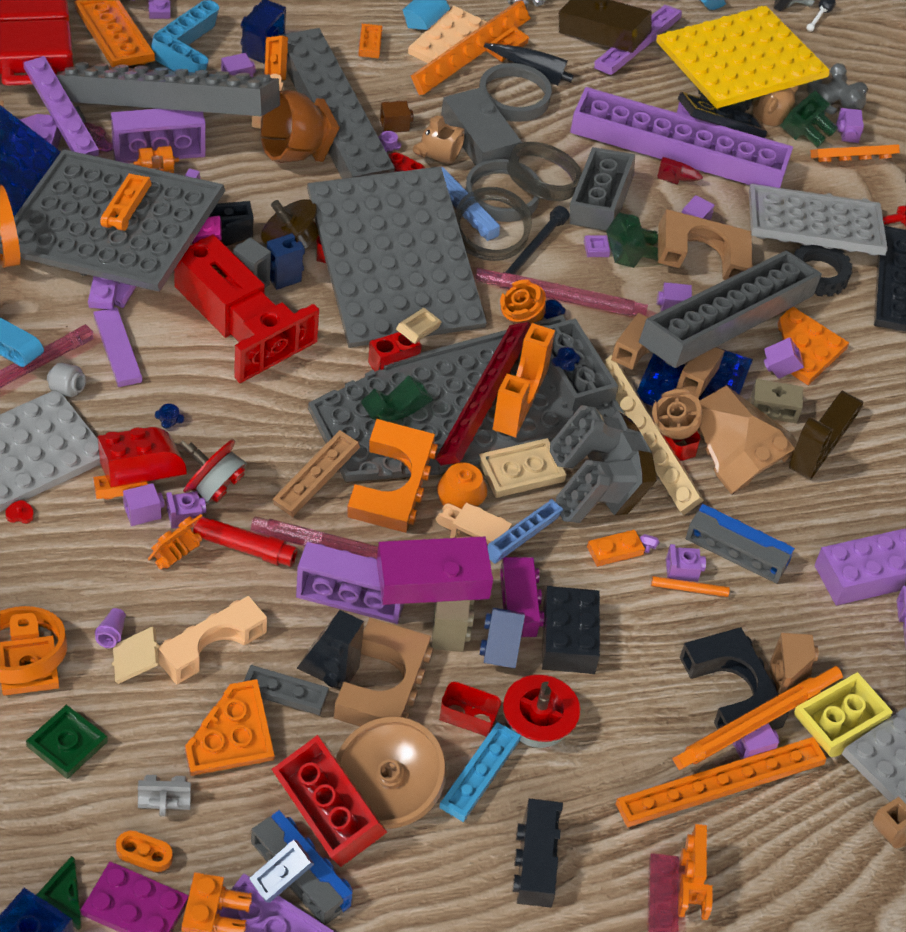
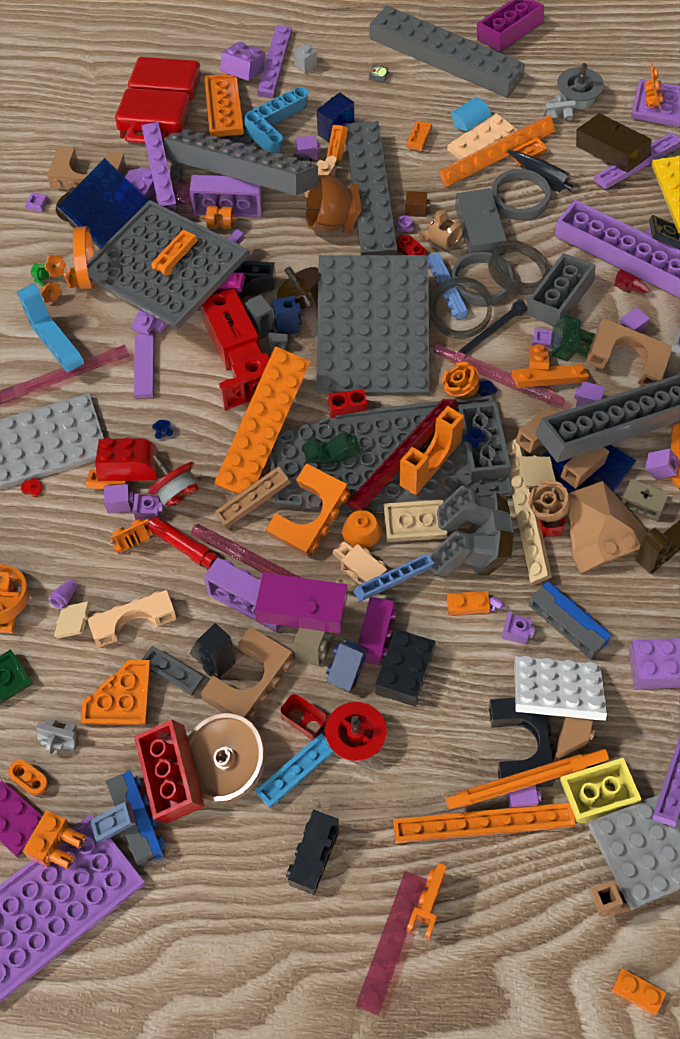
camera: 25 degrees right, 10 degrees up
(66, 379) = (96, 387): light grey head -> none
(281, 289) = (275, 338): none -> dark grey tile
(301, 383) = (262, 421): none -> orange plate
(419, 325) = (370, 387): tan tile -> none
(602, 265) = (538, 357): none -> orange plate
(622, 283) = (553, 376): none -> orange plate
(645, 387) = (536, 470): none -> tan piece
(690, 586) = (514, 647): orange bar -> none
(759, 613) = (559, 688): none -> white plate

